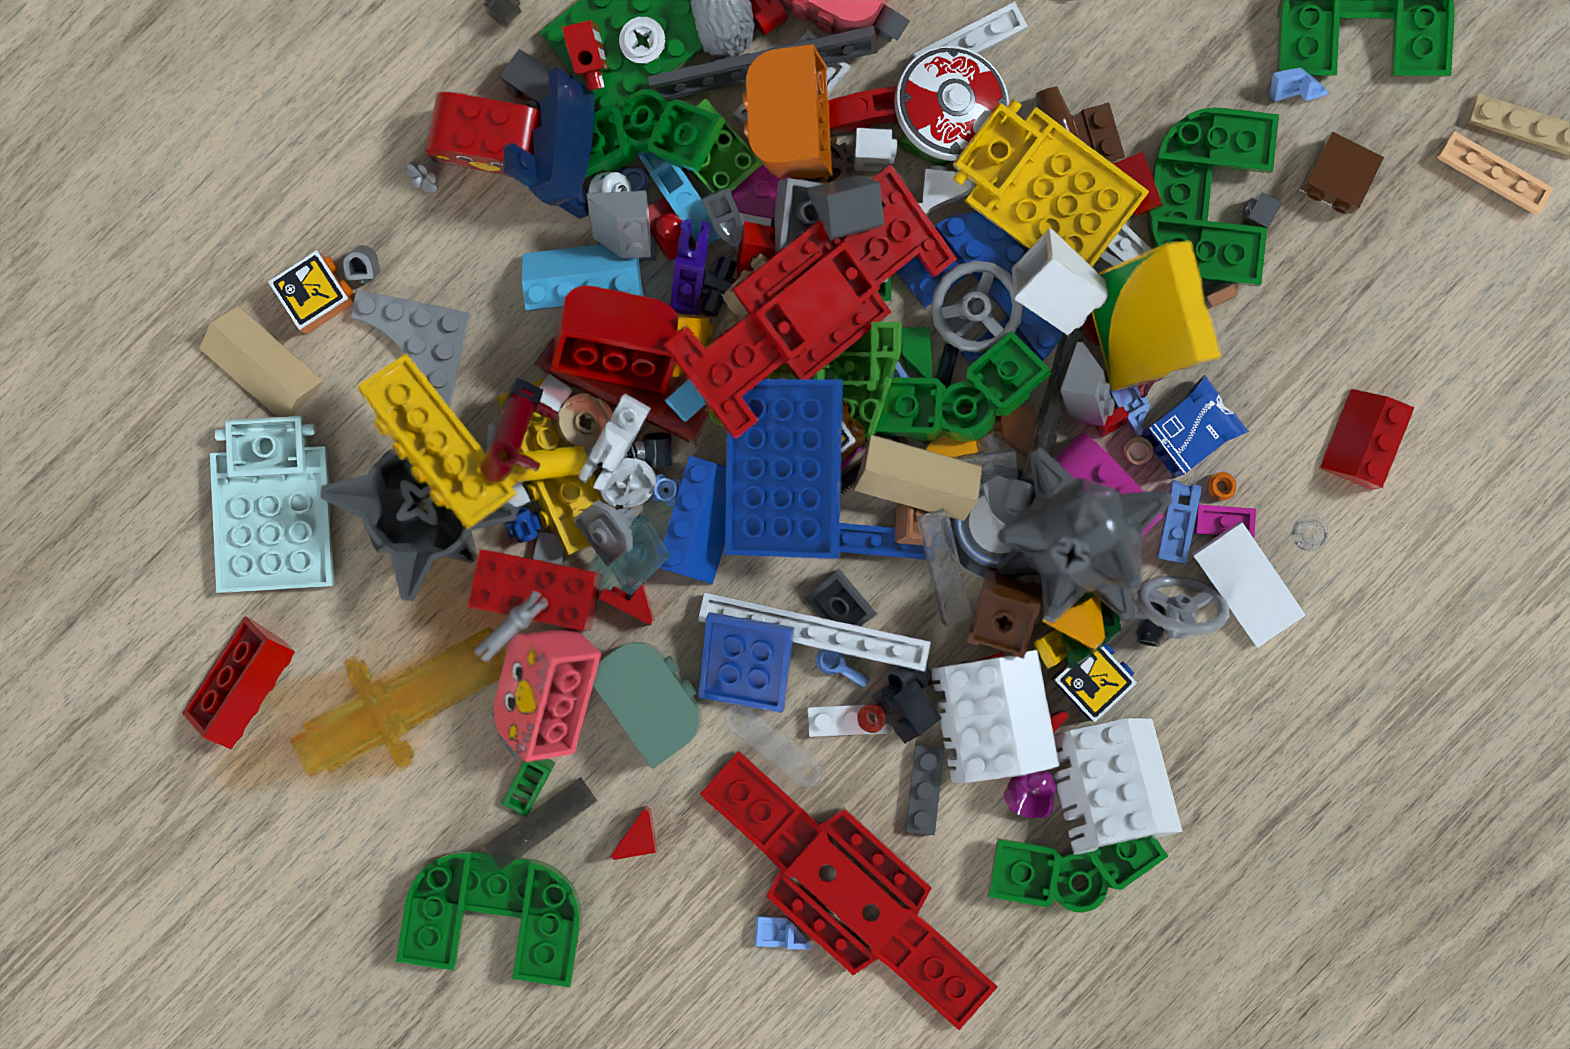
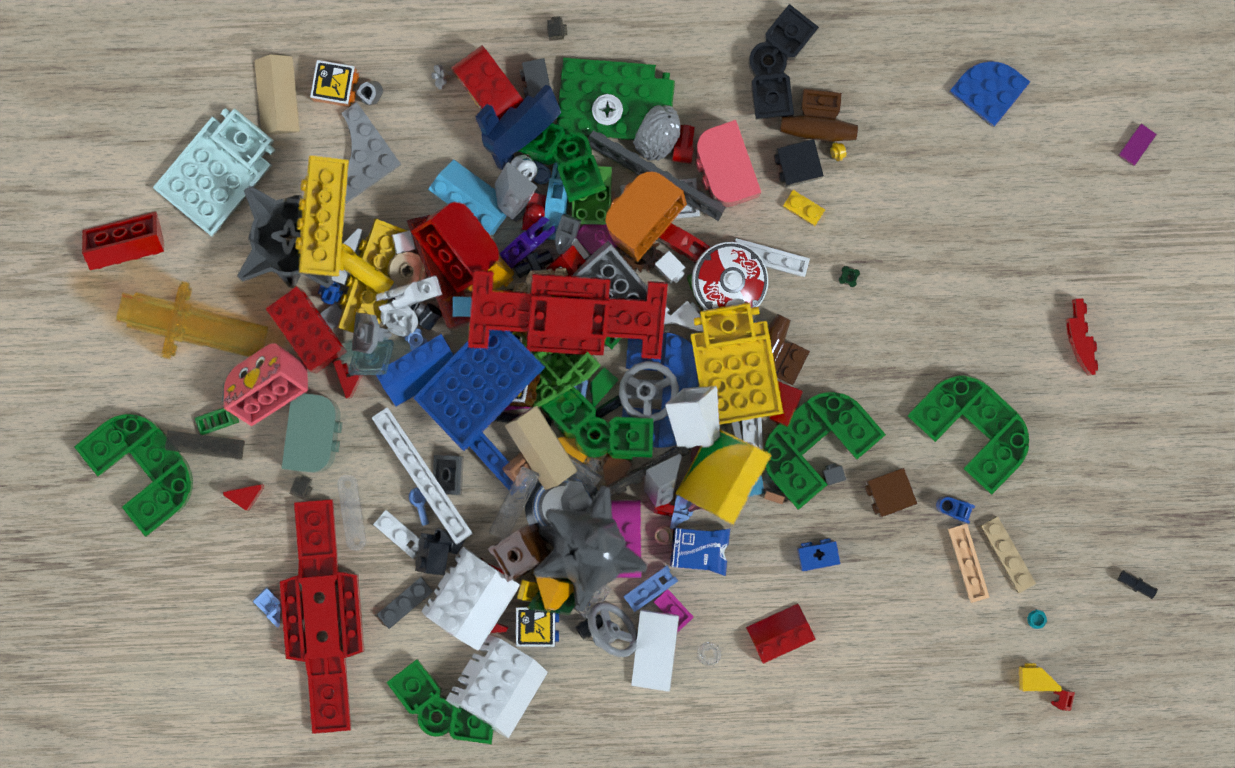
camera: 50 degrees right, 0 degrees up
(511, 429) = (350, 251): dark red piece -> none
(518, 619) = (283, 337): light grey pin -> none
(584, 40) = (579, 86): red torso -> none
(692, 769) = (302, 487): none -> clear smoke plate
(745, 662) = (375, 459): blue plate -> none
(848, 205) = (627, 284): dark grey slope -> none
(865, 722) = (405, 543): clear red plate -> none
(890, 24) = (738, 213): dark grey plate -> none
(1031, 794) = (453, 652): magenta hair -> none
(1229, 482) = (693, 595): orange plate -> none
(1293, 83) = (912, 427): light blue slope -> none
(1340, 307) = (829, 558): none -> blue brick
(1428, 126) = (958, 509): none -> blue piece

